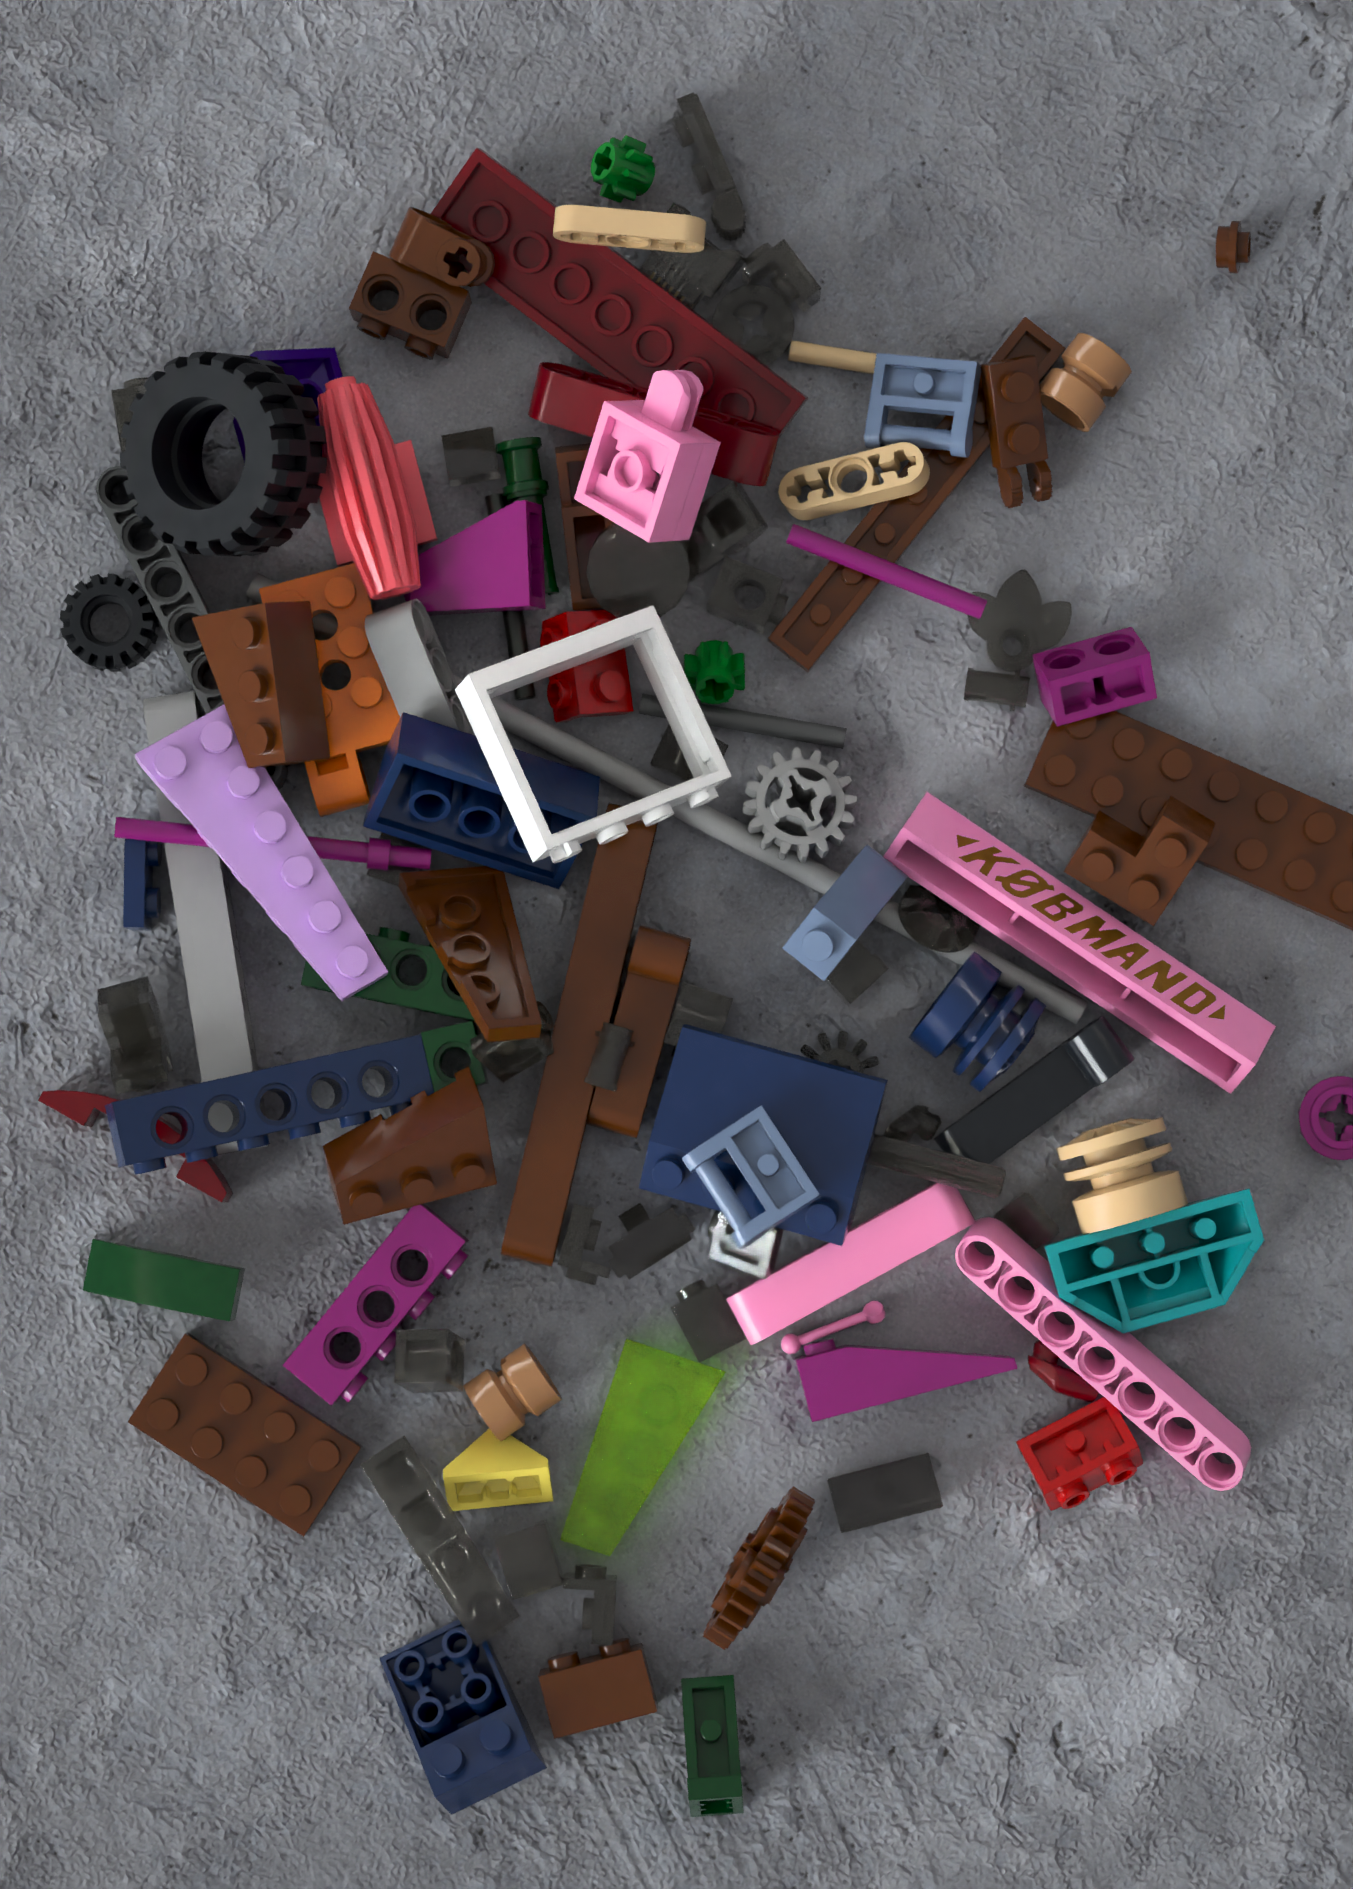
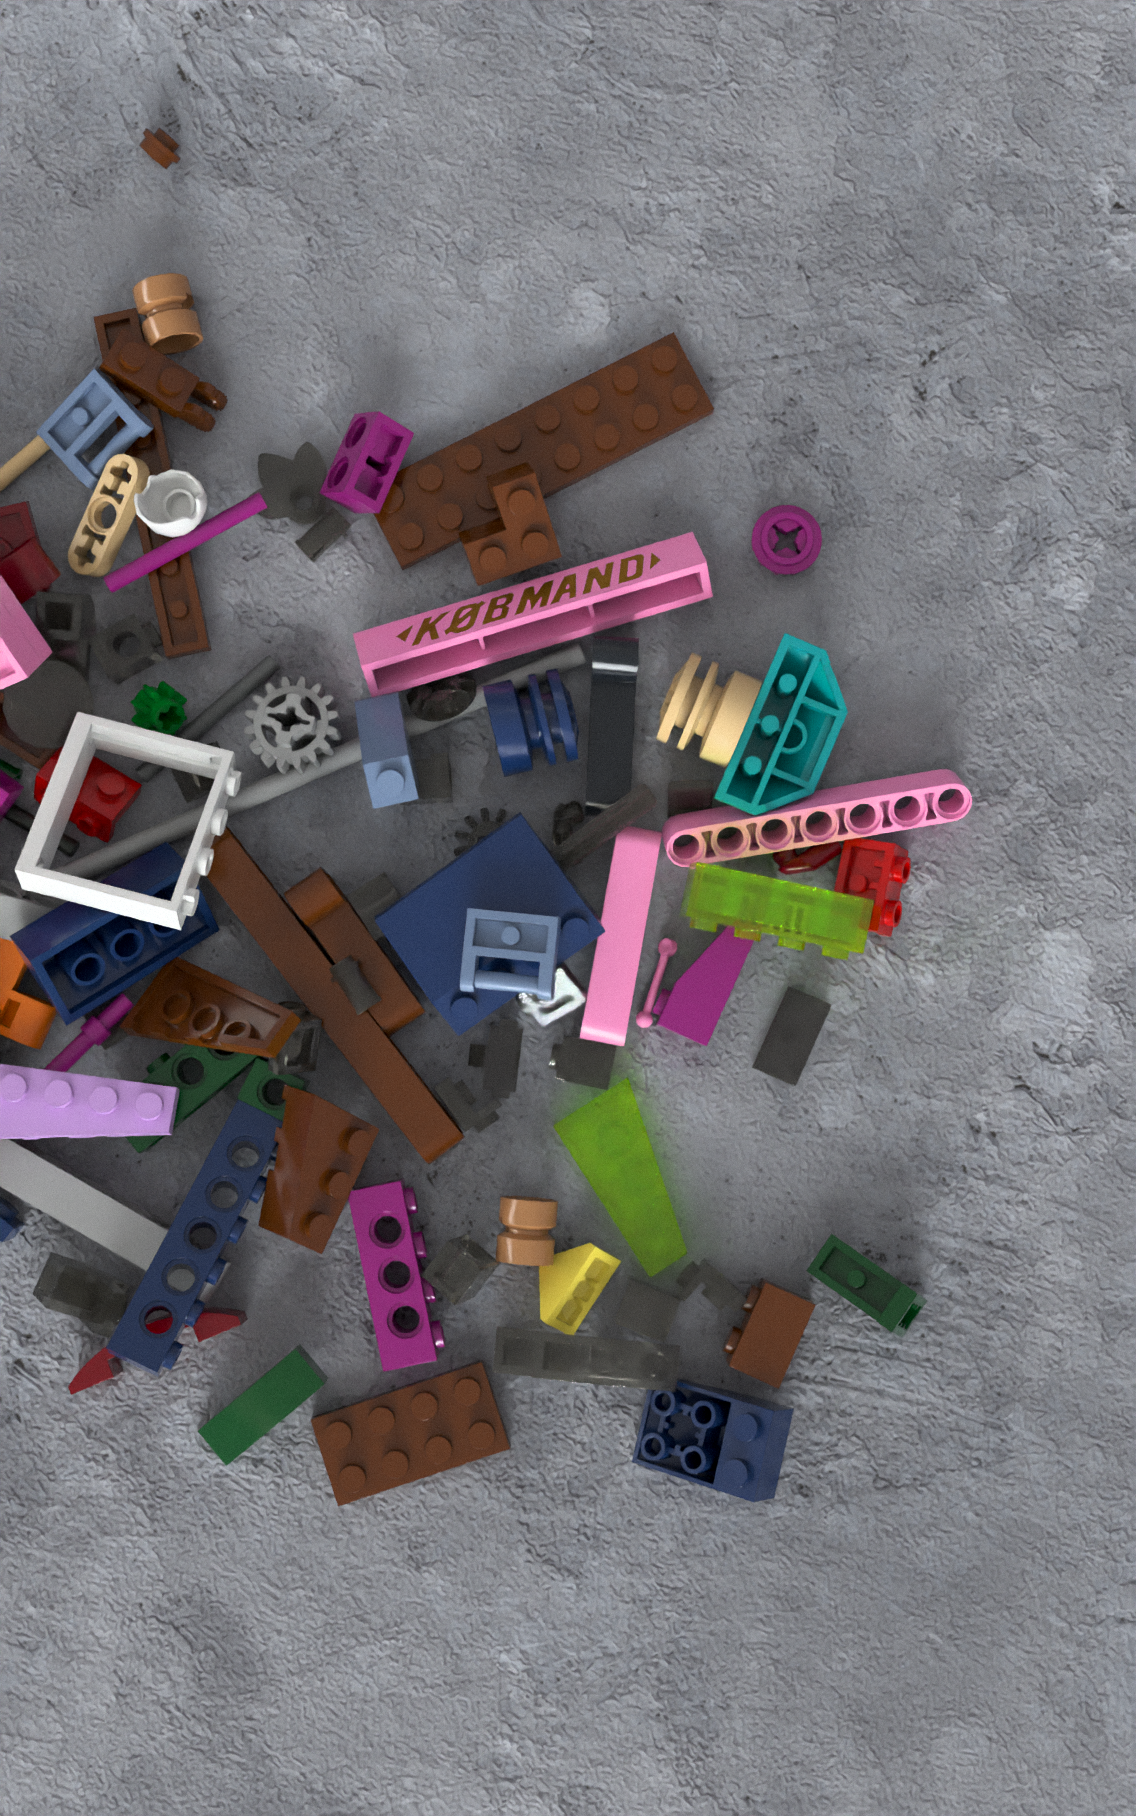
camera: 55 degrees left, 0 degrees up
(759, 1568) = (774, 1160): reddish brown gear -> none
(912, 532) = (172, 503): none -> white hair
(988, 1385) = (776, 909): none -> clear neon green brick

